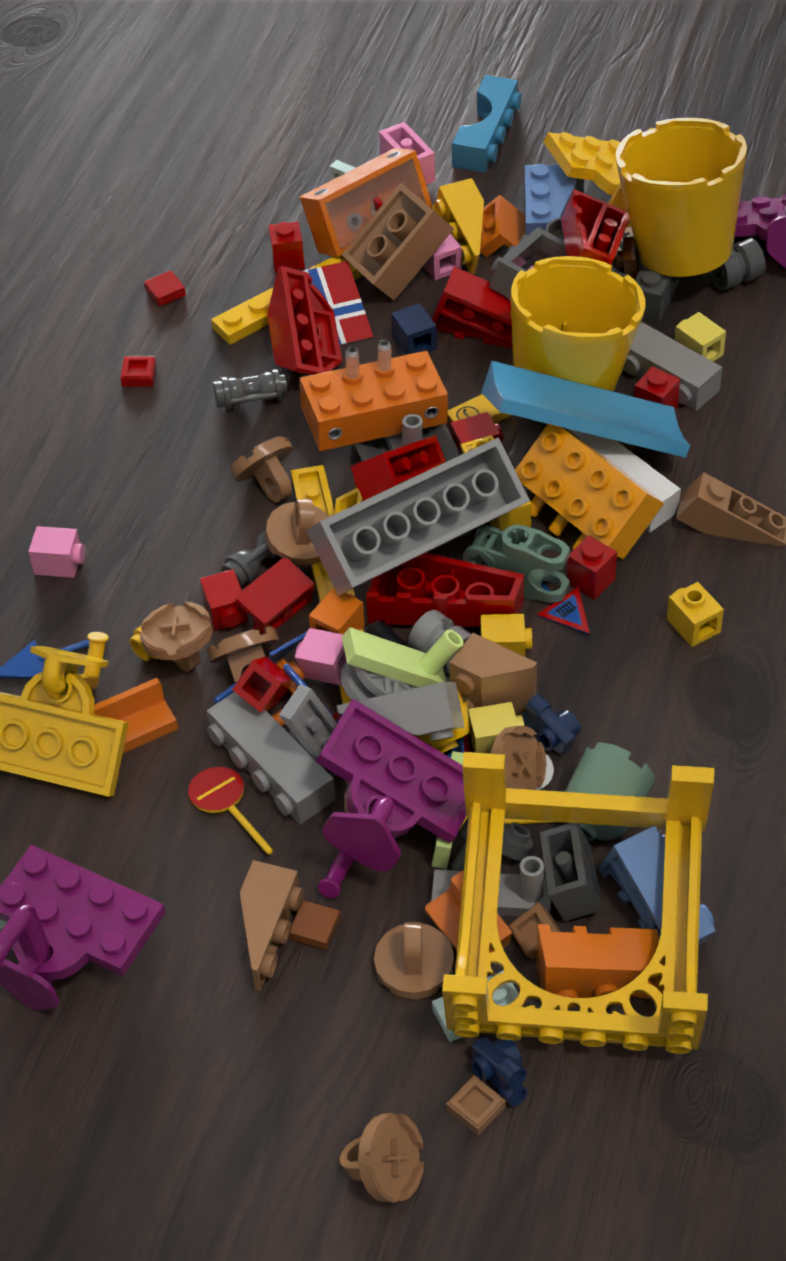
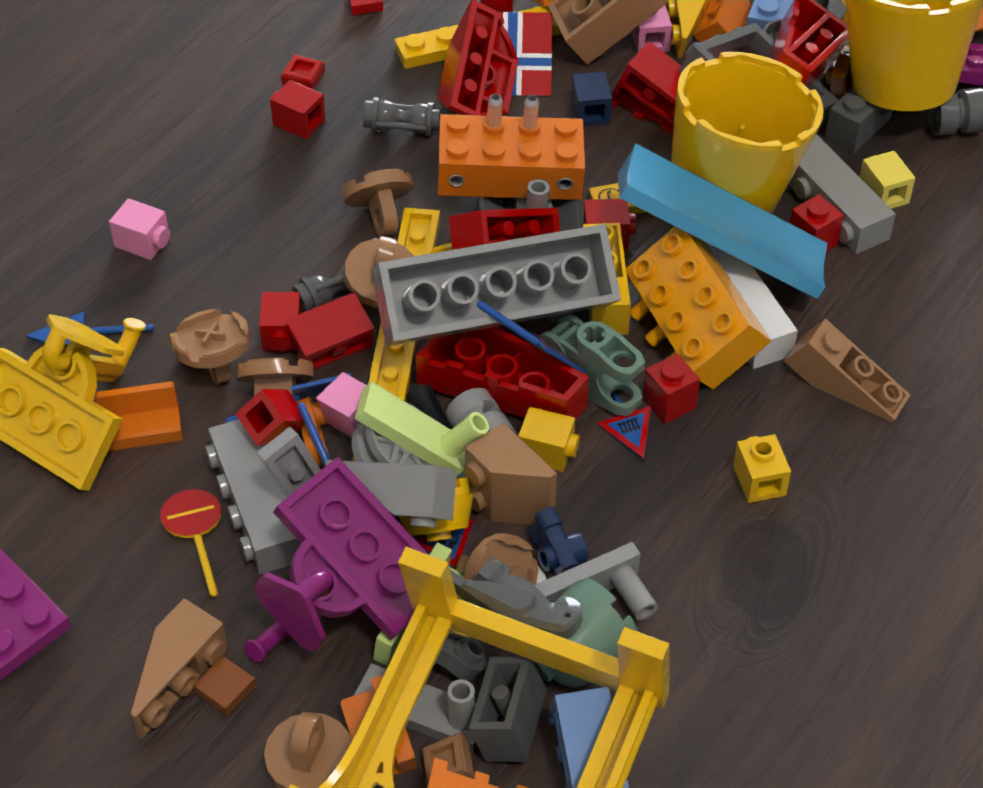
camera: 15 degrees right, 0 degrees up
(151, 406) = (297, 109): none -> red brick
(338, 613) = (382, 365): orange brick -> none
(457, 551) = (532, 338): none -> blue piece
(488, 722) = (493, 519): light yellow brick -> none
(555, 774) = (519, 600): none -> dark grey animal
(608, 729) = (611, 570): none -> light grey piece

